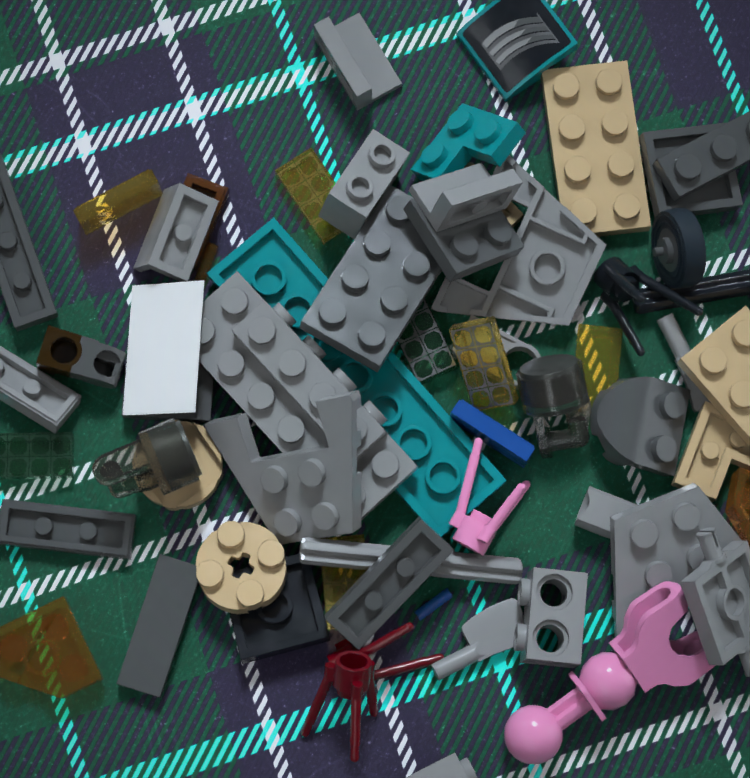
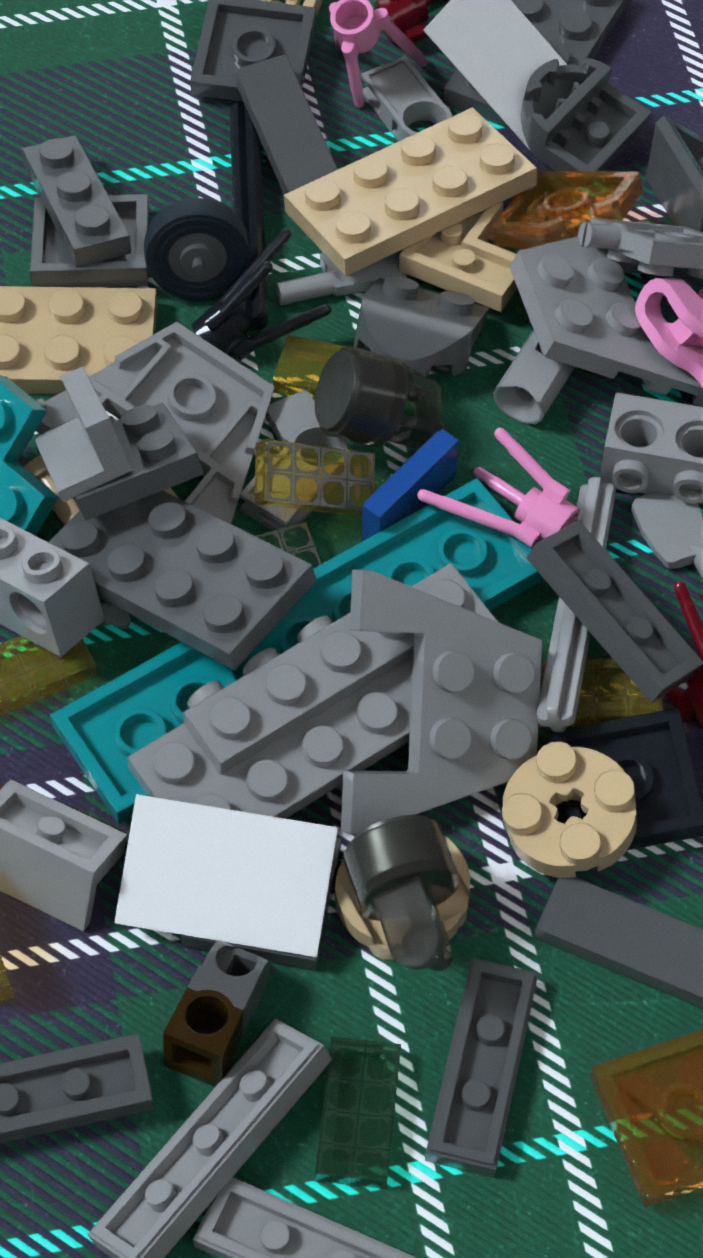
camera: 85 degrees left, 20 degrees down
(552, 342) = (291, 414): none -> light grey piece

